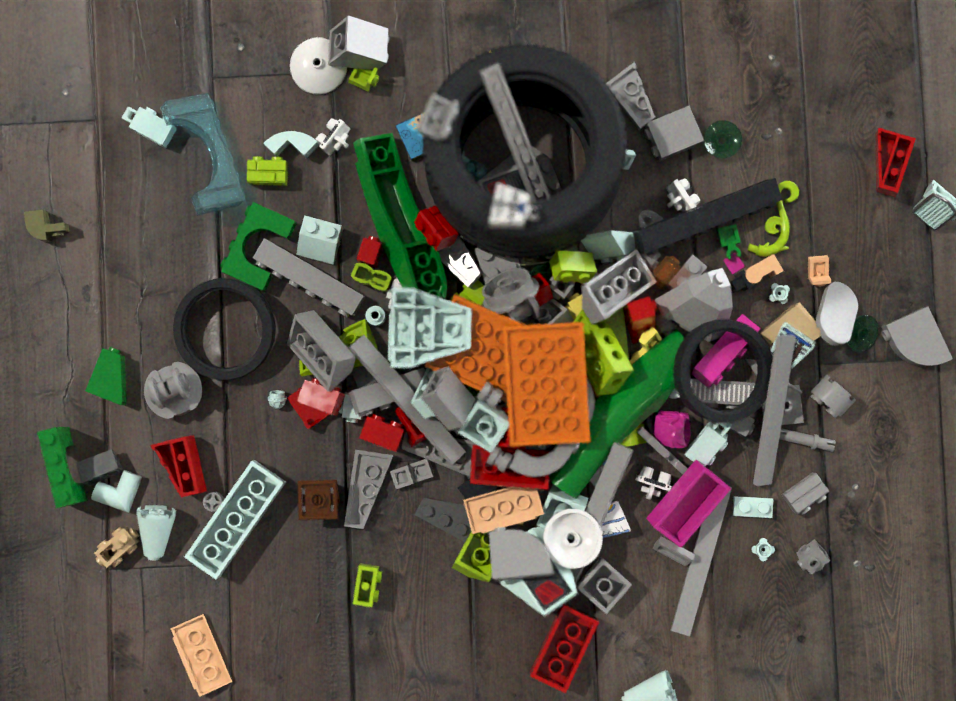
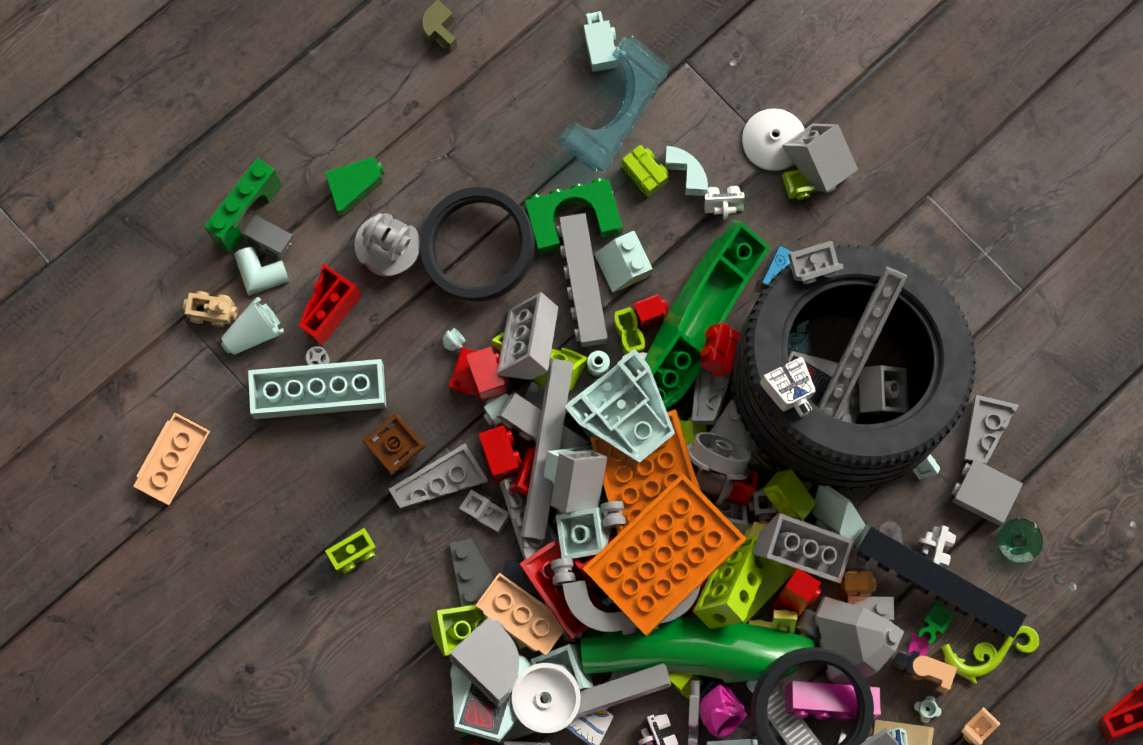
camera: 50 degrees right, 10 degrees down
(554, 143) = (883, 390): none -> light grey brick

